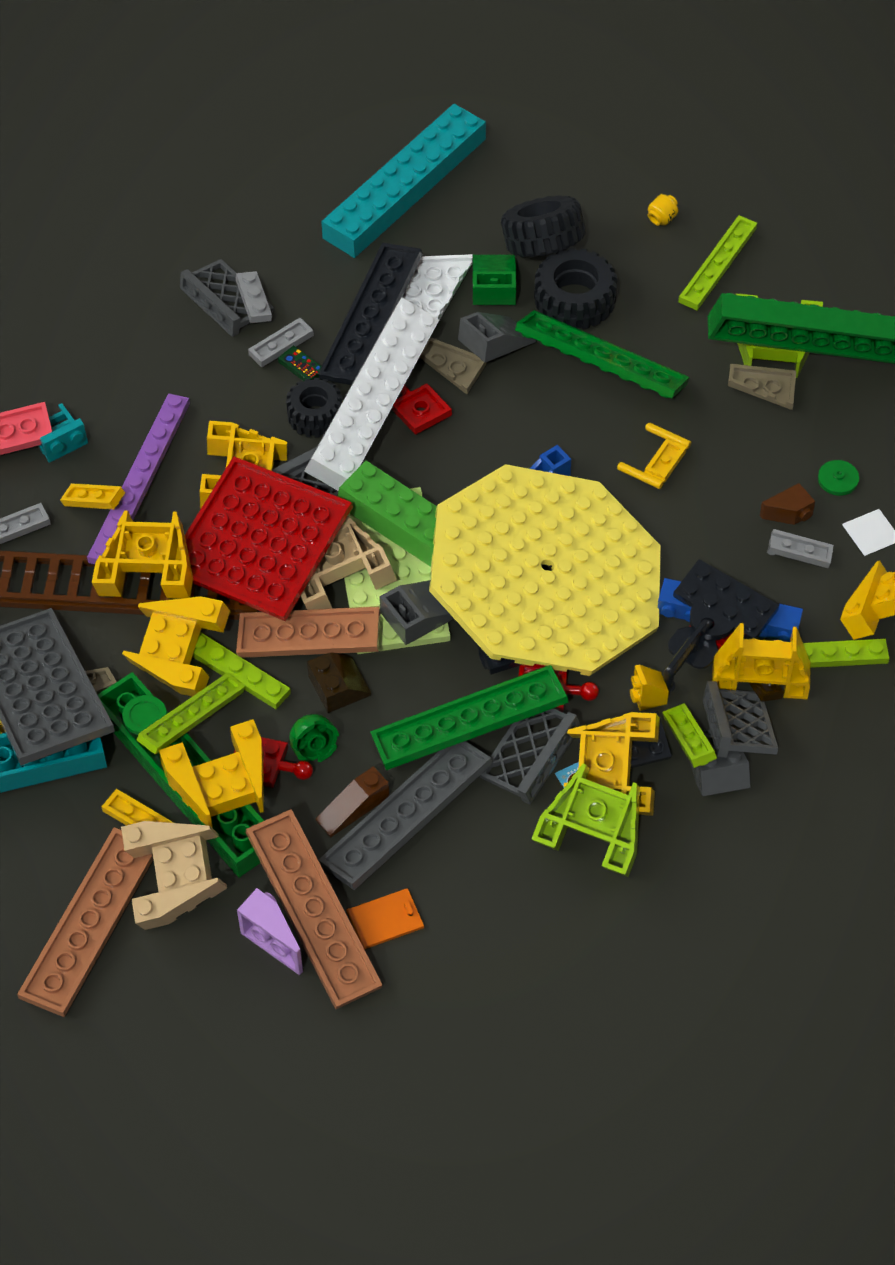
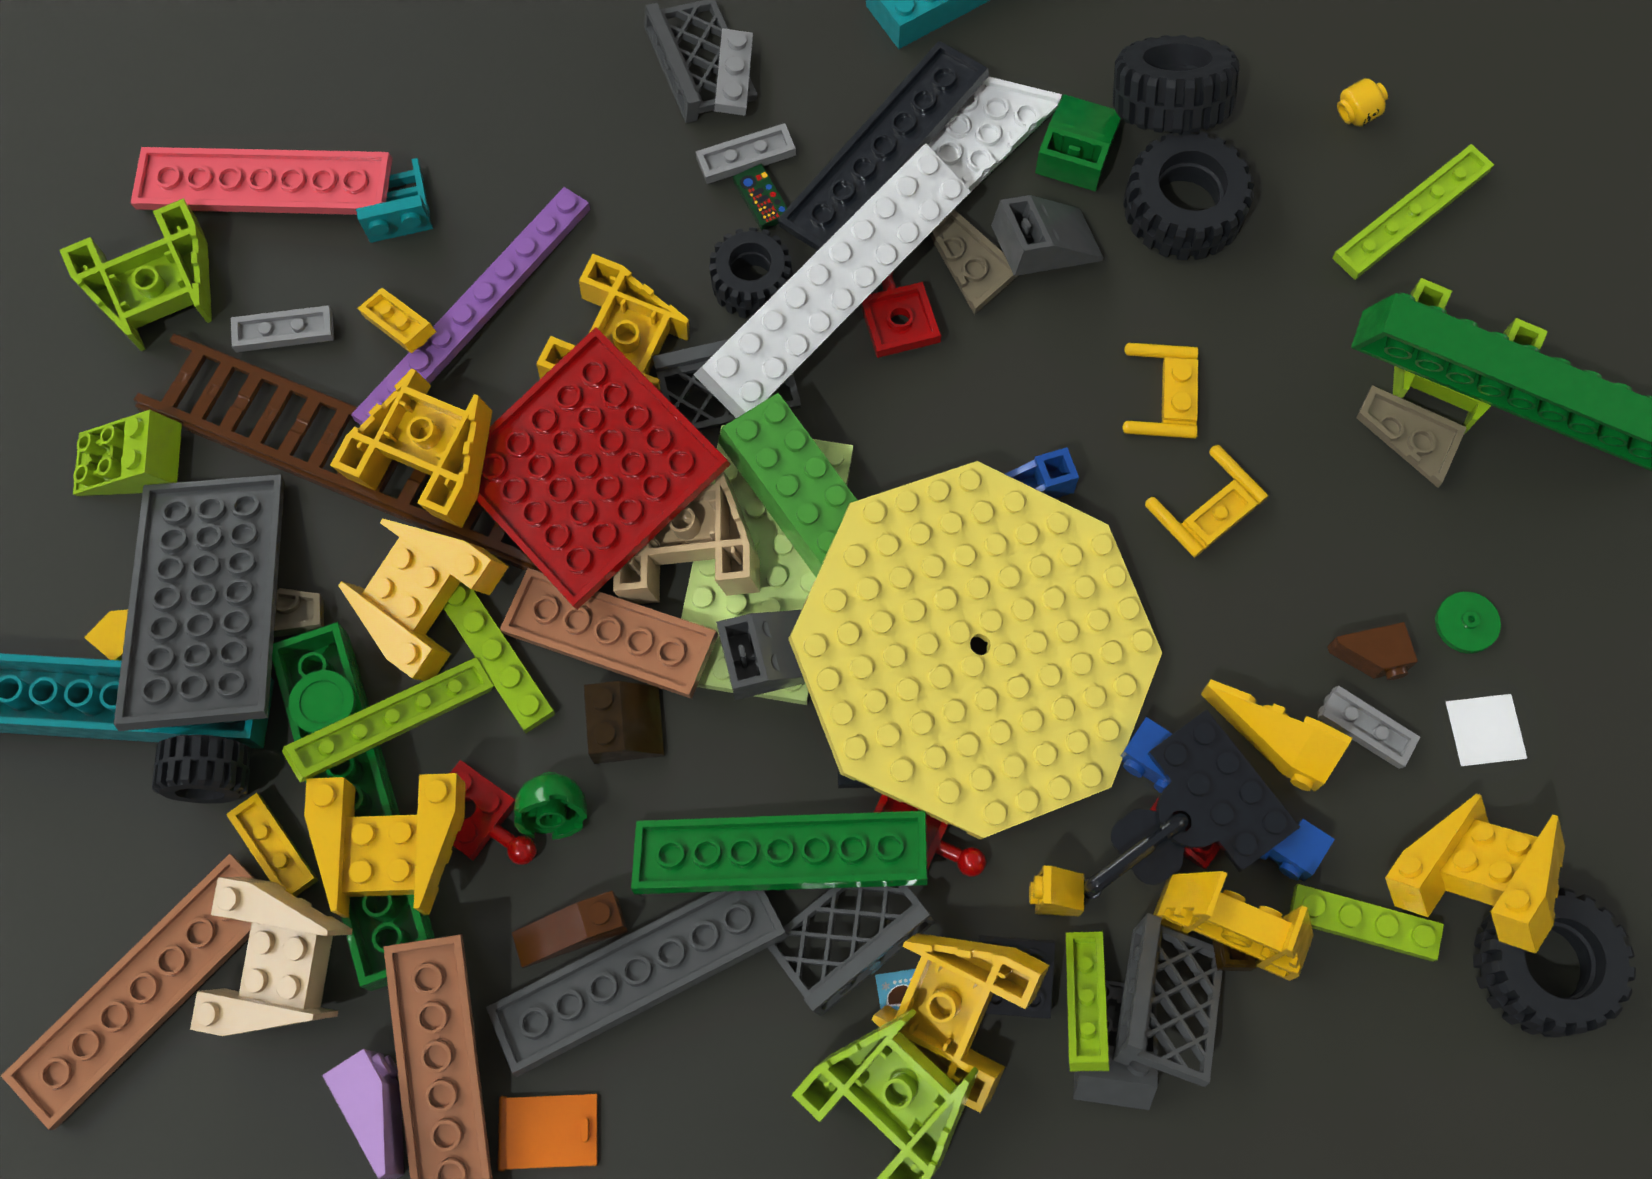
camera: 20 degrees right, 15 degrees up
(78, 779) = (201, 769): none -> black tyre
(602, 354) = (1190, 314): green plate -> none
(612, 401) = (1178, 391): none -> yellow plate
(755, 567) = (1295, 748): none -> yellow wedge

